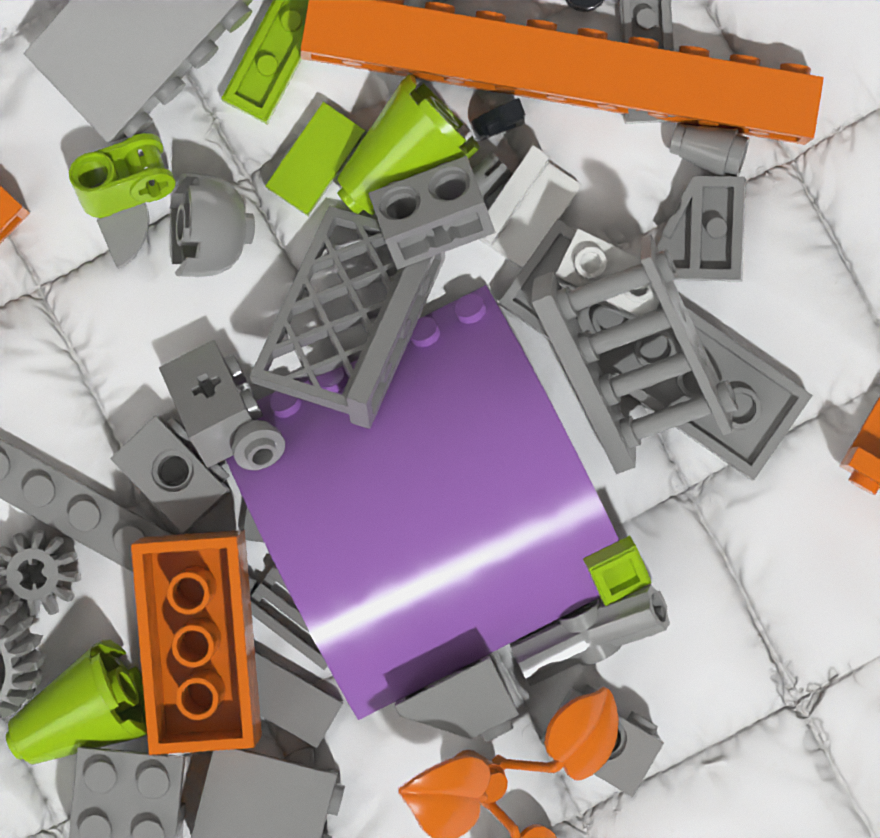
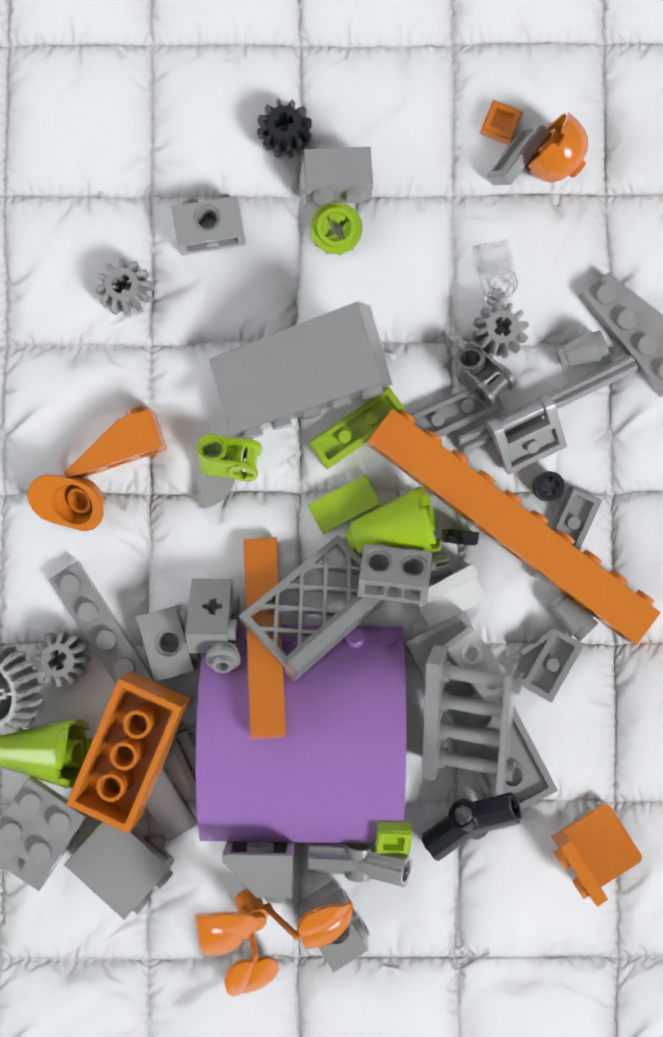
camera: 25 degrees right, 0 degrees up
(208, 226) = (262, 512): light grey cylinder -> none
(321, 431) = (264, 670): none -> orange tile
(715, 498) = (486, 815): none -> black piece

